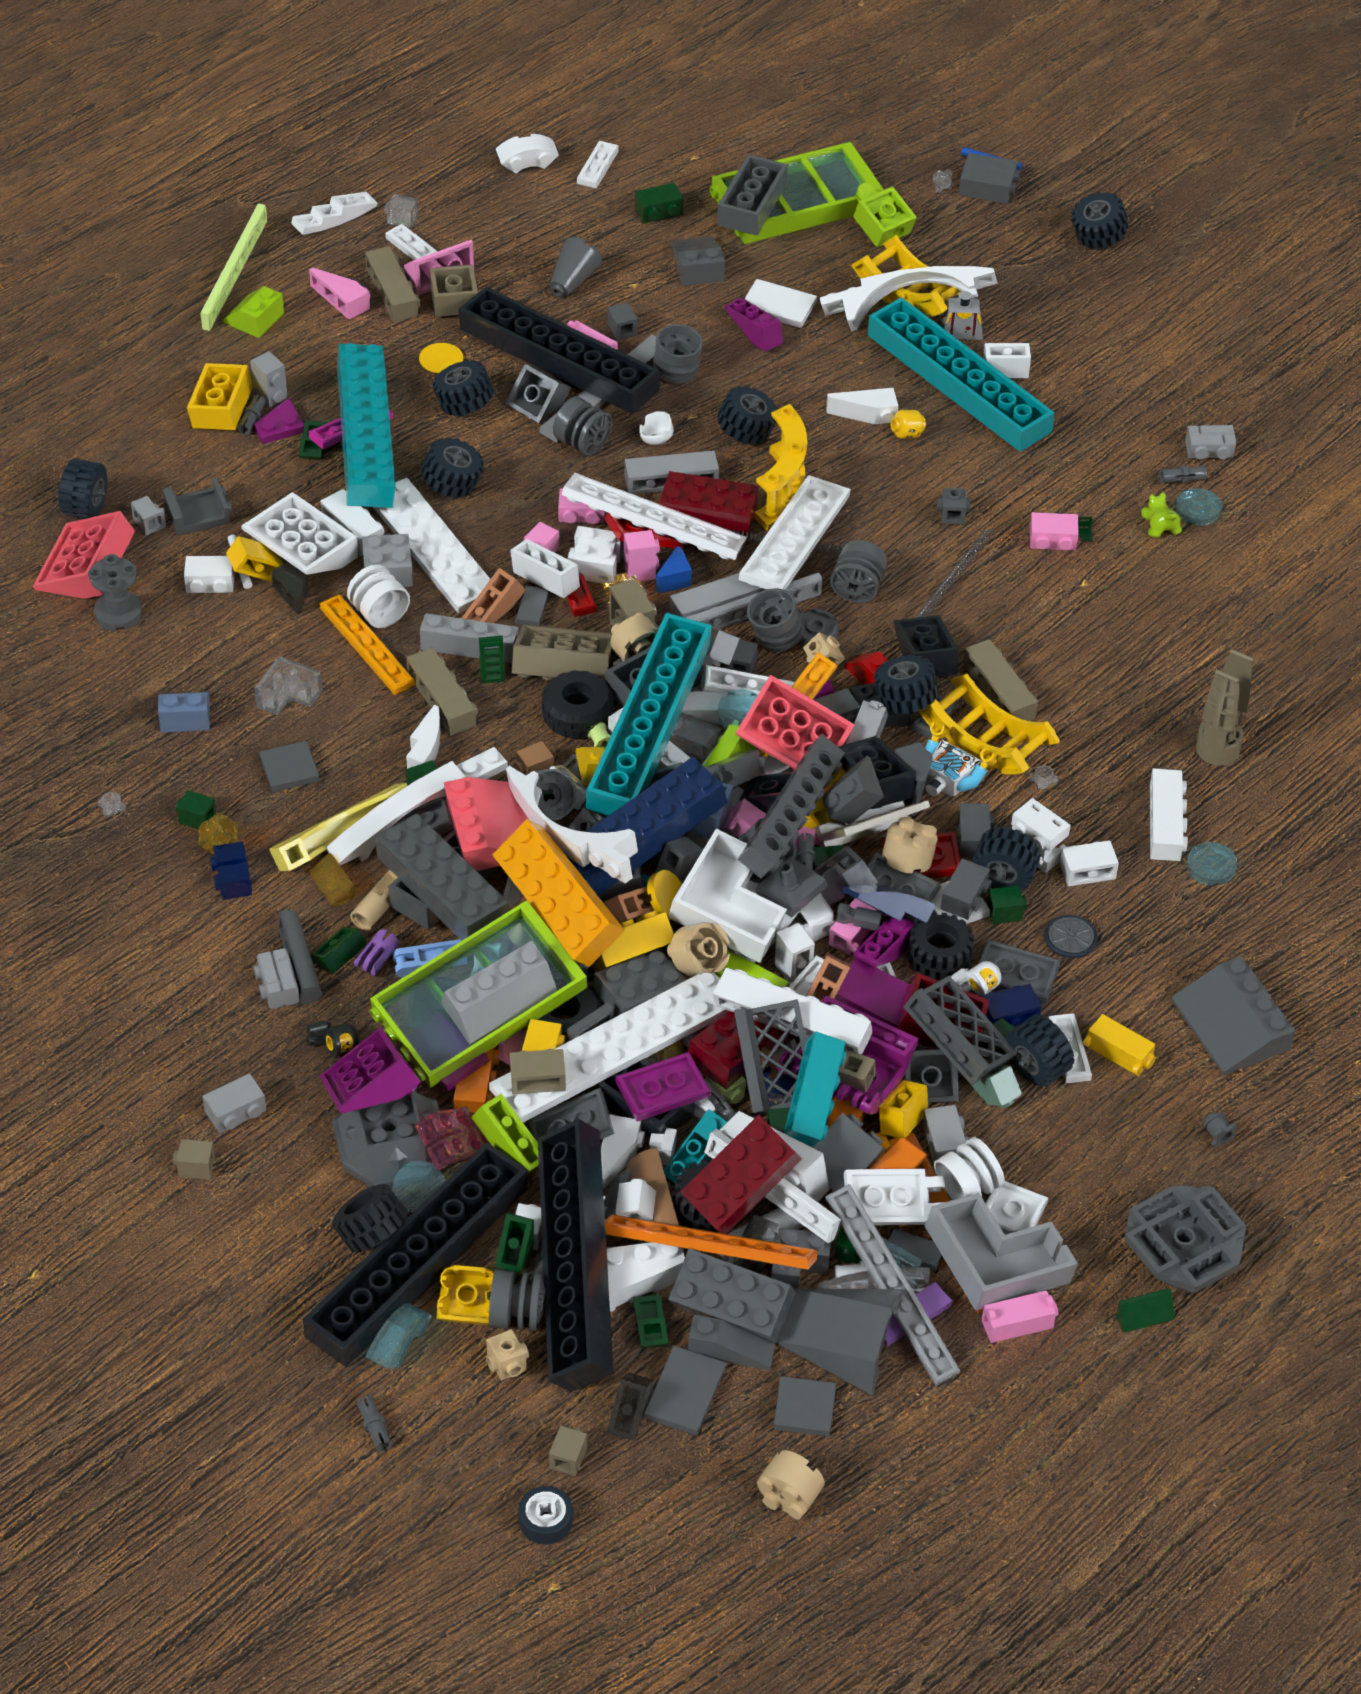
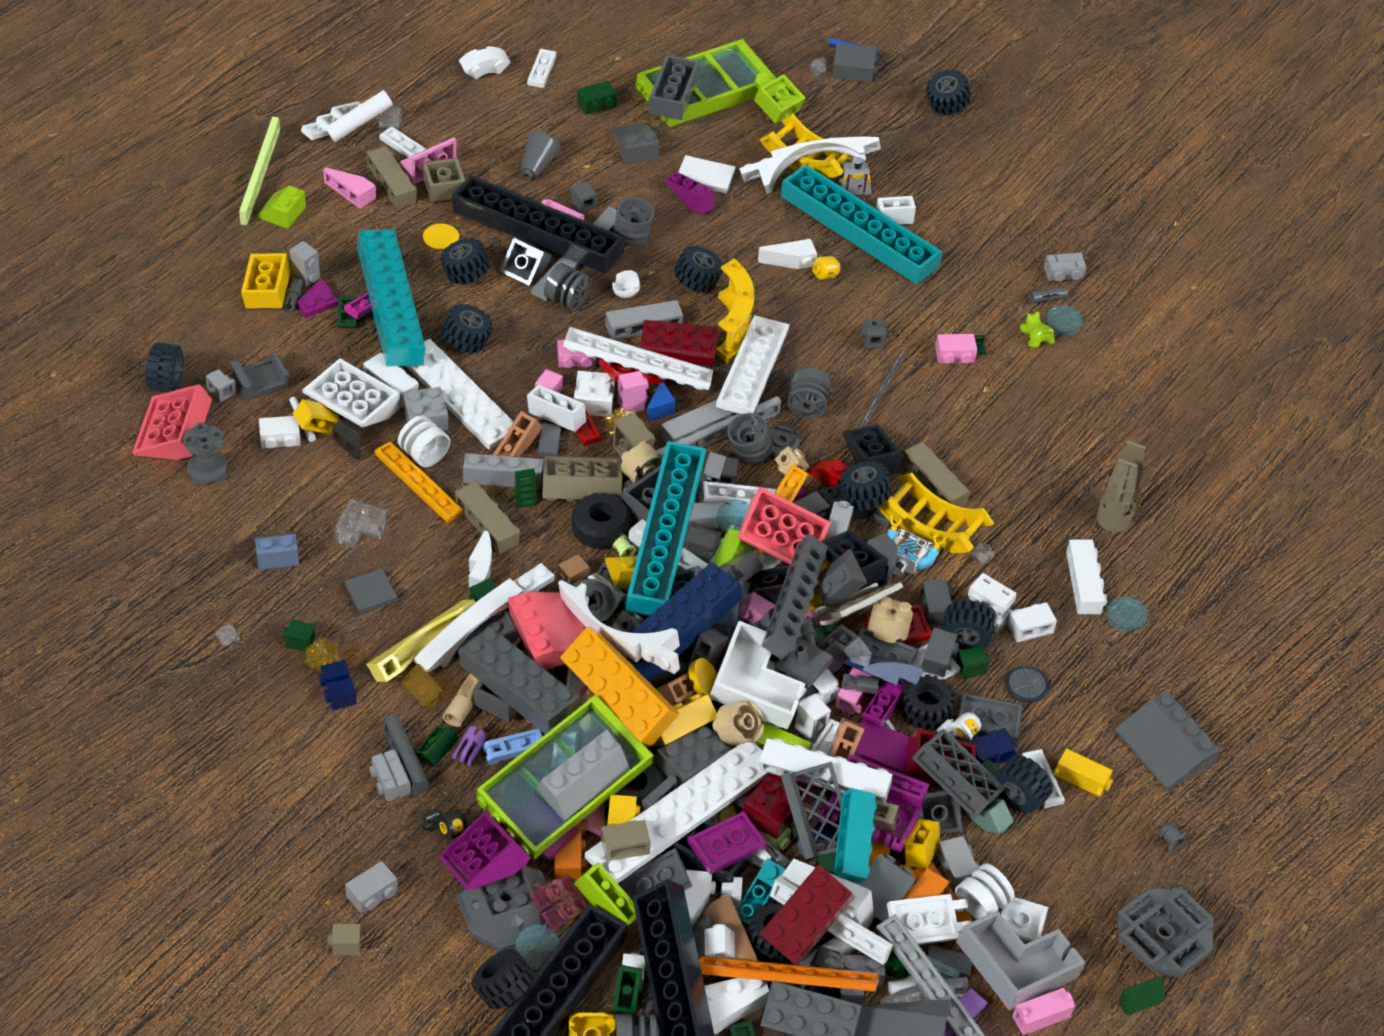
camera: 10 degrees left, 0 degrees up
(362, 208) = (359, 116): none -> white brick

